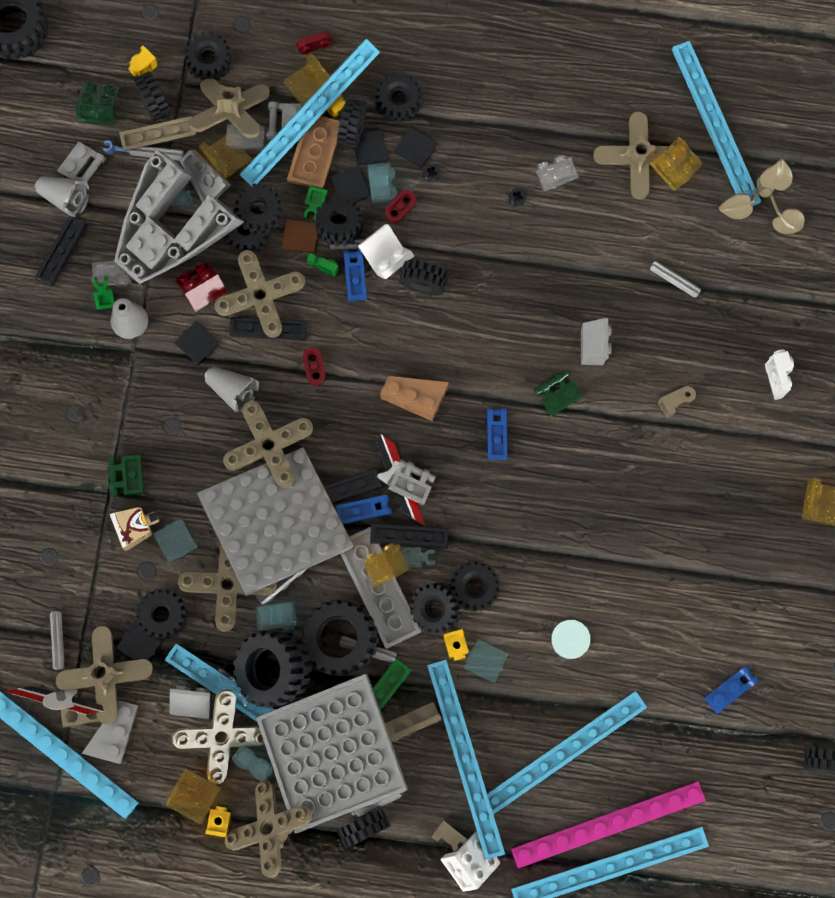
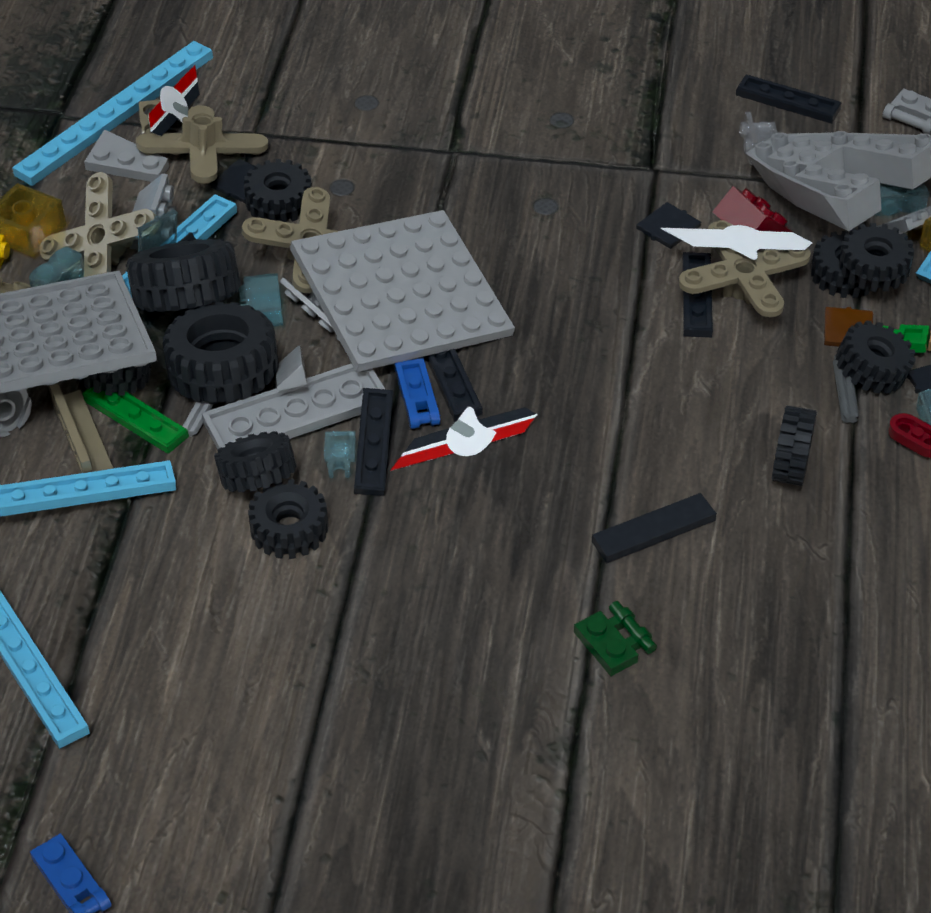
camera: 95 degrees right, 30 degrees down
(57, 640) = (254, 107): light grey axle -> none
(64, 193) = (865, 92): light grey cone -> none
(103, 296) = (727, 128): green plate -> none
(128, 319) = (697, 146): light grey cone -> none
(132, 475) = (472, 160): dark green plate -> none
(133, 526) = (399, 163): torso -> none
(175, 540) = (381, 207): clear light blue piece -> none
(232, 386) = (597, 250): light grey cone -> none
(238, 293) = (740, 239): none -> white sticker
(263, 435) = (514, 282): dark tan piece -> none
(314, 367) = (640, 338): dark red plate -> none
(326, 265) = (802, 348): green plate -> none
(350, 591) = (291, 371): none -> light grey slope
(355, 276) = (793, 383): blue plate -> none
(384, 252) = (839, 406): white bracket -> none
(385, 565) = (329, 403): clear yellow bracket -> none
(410, 487) = (450, 440): light grey plate -> none
(415, 395) = (596, 449): medium nougat wedge -> none
(449, 639) = (198, 496): yellow brick -> none
(474, 367) = (653, 527): none -> black tile
(485, 661) = (169, 539): clear light blue piece -> none
(497, 434) = (541, 551): blue plate -> none
(570, 639) = (190, 646): light aqua tile -> none
(594, 342) = (707, 682): light grey slope -> none
(675, 279) = (846, 818): light grey axle -> none
(678, 398) = (609, 805): dark tan leg -> none

